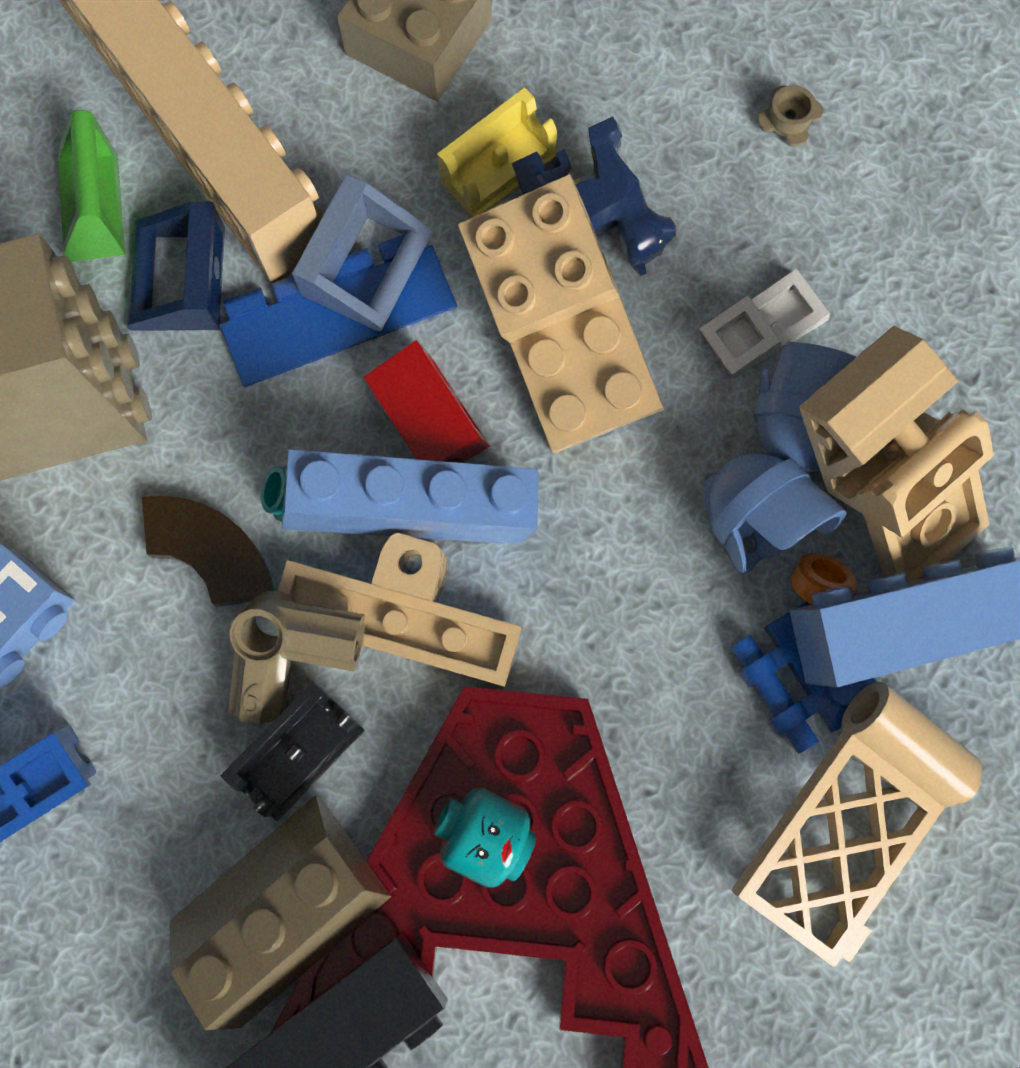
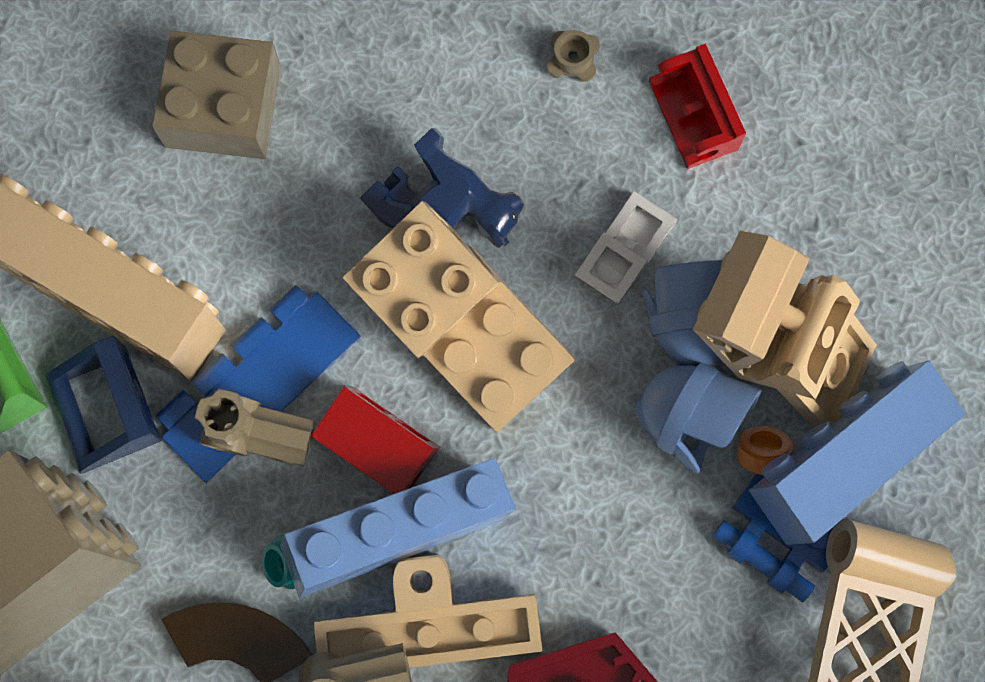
camera: 25 degrees left, 0 degrees up
(301, 342) = (243, 427): none -> dark tan piece
(335, 237) = (234, 327): sand blue tile -> none
(478, 163) = (331, 203): light yellow hinge -> none
(899, 211) = (697, 107): none -> red hinge

